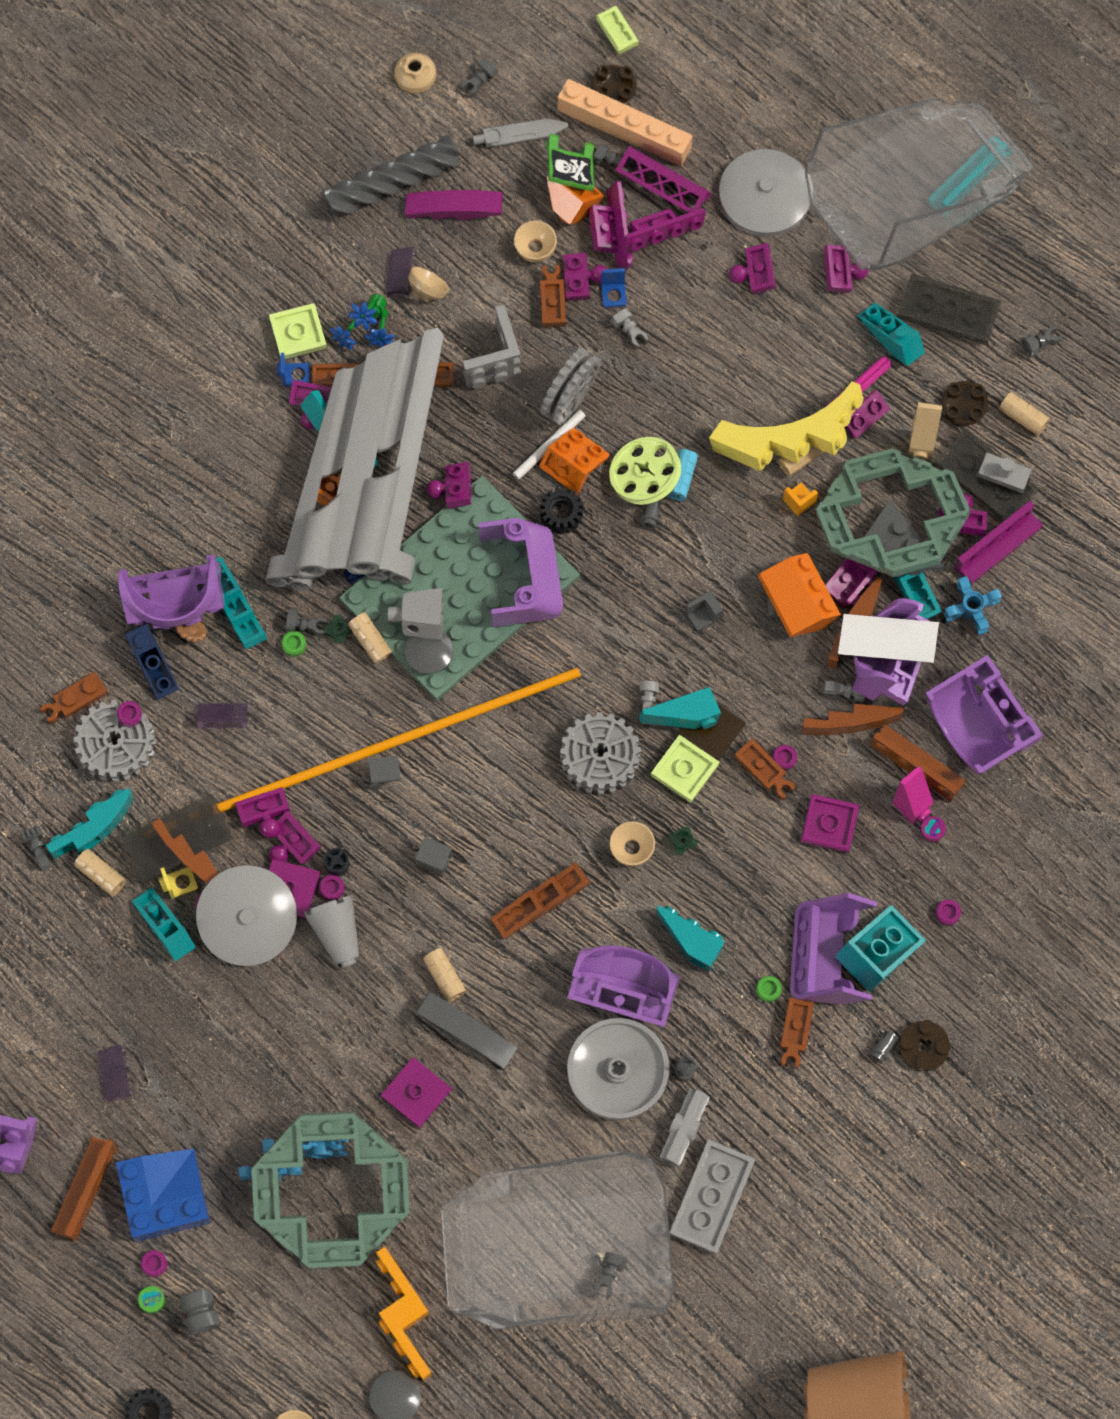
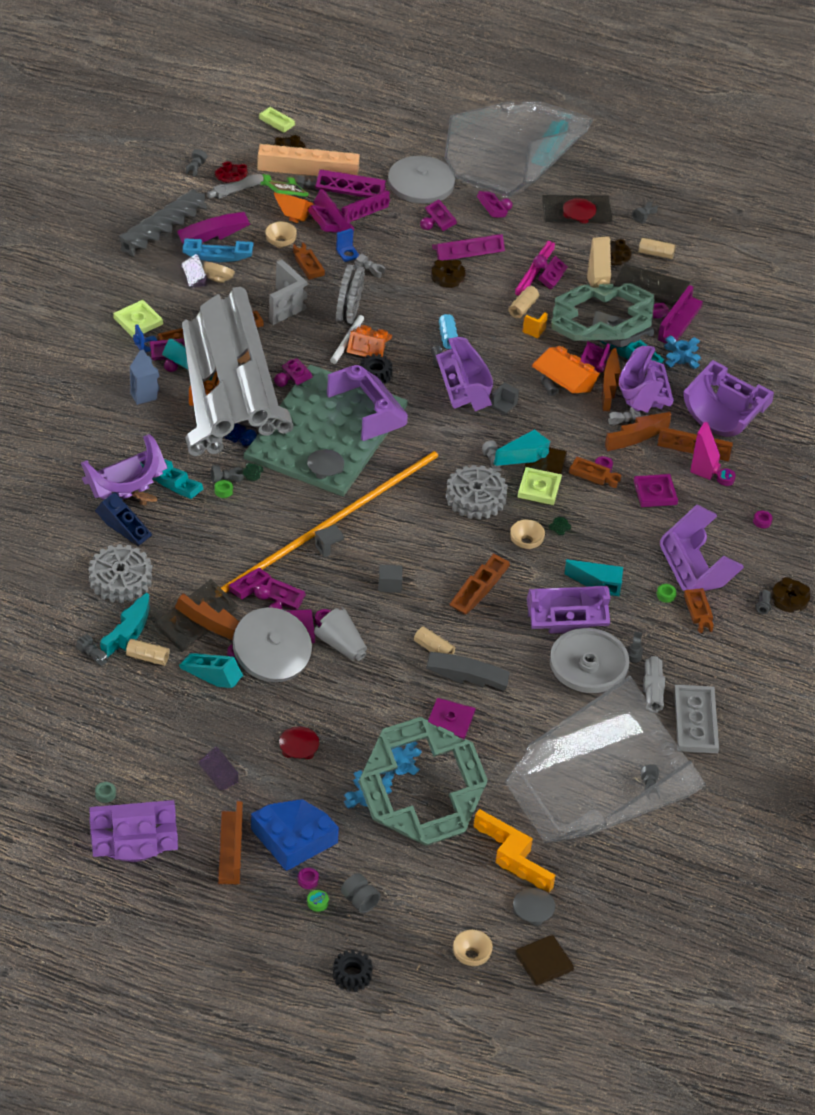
camera: 25 degrees left, 25 degrees down
(75, 697) = (76, 558): dark orange plate -> none
(129, 714) = (126, 548): magenta tile -> none
(168, 882) = (202, 643): light yellow bracket -> none
(222, 715) = (193, 541): clear purple slope -> none
(223, 1065) = (299, 743): none -> dark red dish
(258, 441) = (143, 379): none -> sand blue slope
(334, 857) = (320, 599): black wheel -> none
(366, 314) = (186, 293): blue plant -> none
(370, 638) = (278, 468): tan axle -> none
(415, 81) = (149, 173): tan piece -> none
(420, 614) = (310, 440): light grey torso -> none
(442, 245) = (218, 253): none -> dark azure slope
(517, 110) = (231, 172): none -> dark red dish
(578, 276) = (320, 247): magenta plate -> none
(644, 479) = (422, 333): yellowish green wedge -> none
(660, 576) = (468, 380): none -> medium lavender piece
(725, 358) = (442, 267): none -> dark brown plate
(774, 334) = (469, 247): none -> magenta fence
(793, 440) = (514, 290): light yellow arch -> none
(880, 948) = (729, 543): teal slope -> none
(888, 638) = (640, 372): white sticker -> none
(894, 334) = (553, 229): teal slope -> none
(947, 318) = (579, 210): none -> dark red dish
(1004, 472) = (663, 276): light grey tile -> none

